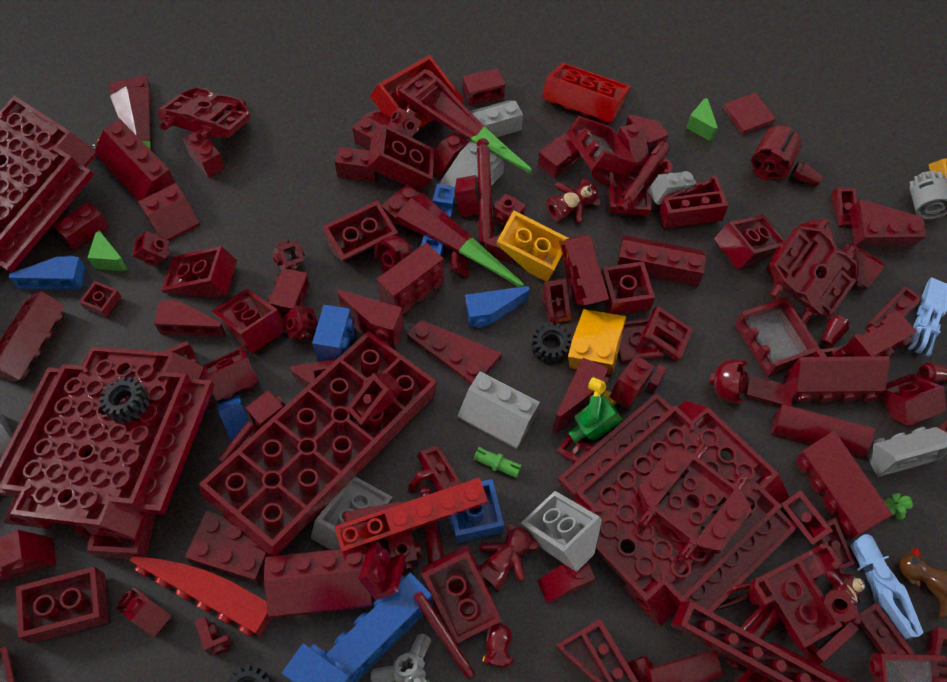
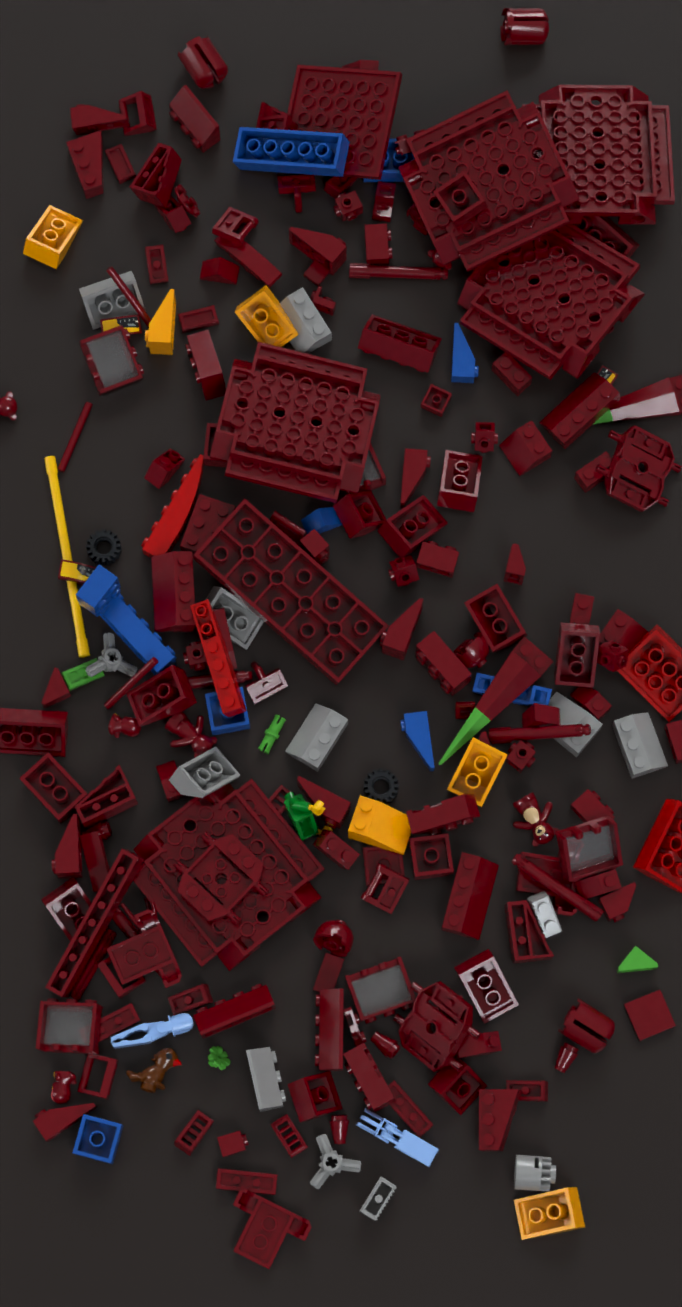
camera: 95 degrees right, 15 degrees up
(61, 605) = (170, 411): dark red brick -> none
(104, 256) = (483, 397): bright green slope -> none
(117, 392) = (319, 425): black tyre -> none
(208, 633) = (143, 516): dark red bracket -> none
(295, 252) = (474, 556): dark red brick -> none
(303, 205) = (515, 567): none -> dark red tile
(306, 373) = (354, 579): dark red slope -> none
(333, 333) = (387, 598): blue brick -> none
(374, 397) = (317, 629): dark red slope -> none
(380, 572) = (175, 635): dark red bracket -> none
(436, 101) = (643, 686): dark red plate -> none
(454, 351) = (373, 708): dark red wing -> none
(556, 300) = (421, 794): dark red slope -> none
(655, 379) = (341, 873): dark red tile -> none
(806, 517) = (210, 975): dark red slope -> none
(810, 427) = (286, 1009): dark red brick -> none
(844, 596) = (137, 982): dark red piece -> none

